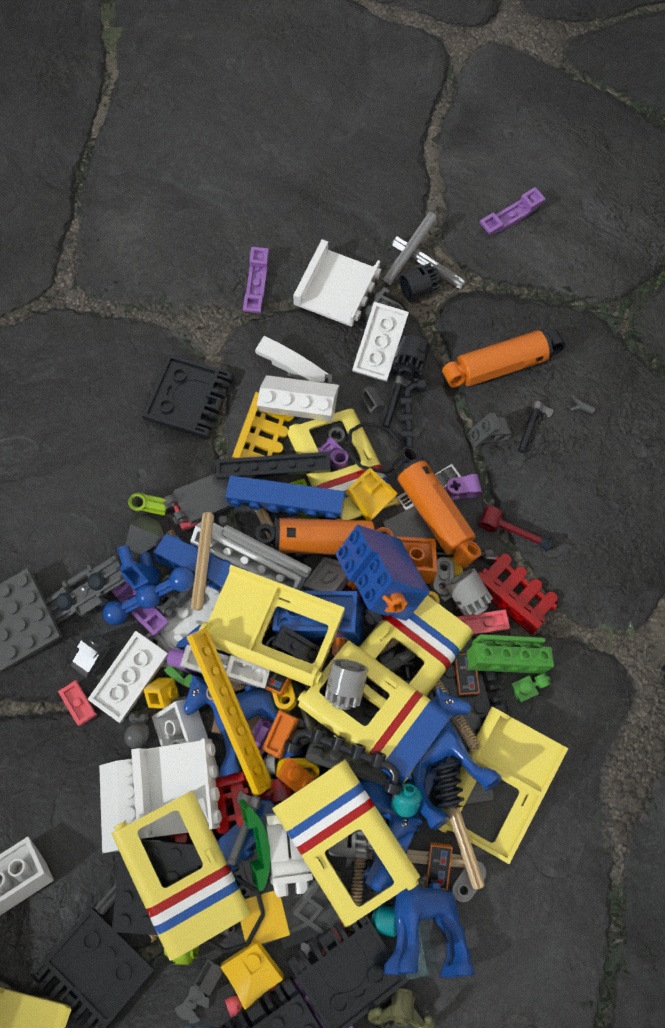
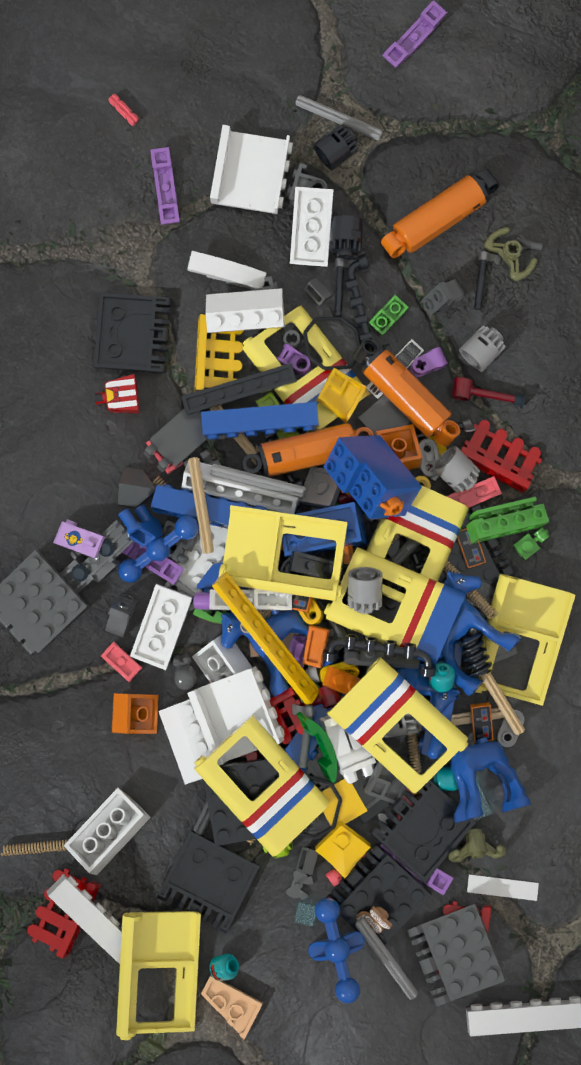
camera: 10 degrees left, 15 degrees up
(73, 568) = (78, 539): none -> lavender door
(73, 761) = (135, 713): none -> orange slope
(150, 504) = (131, 456): lime piece -> none
(159, 447) = (120, 395): none -> torso
(161, 693) = (196, 634): yellow brick -> none
(238, 214) = (123, 109): none -> coral axle
(409, 248) = (316, 108): light grey axle -> none
(434, 437) = (389, 315): none -> bright green slope
(519, 485) = (483, 348): none -> light grey gear
(563, 409) = (510, 253): none -> olive piece

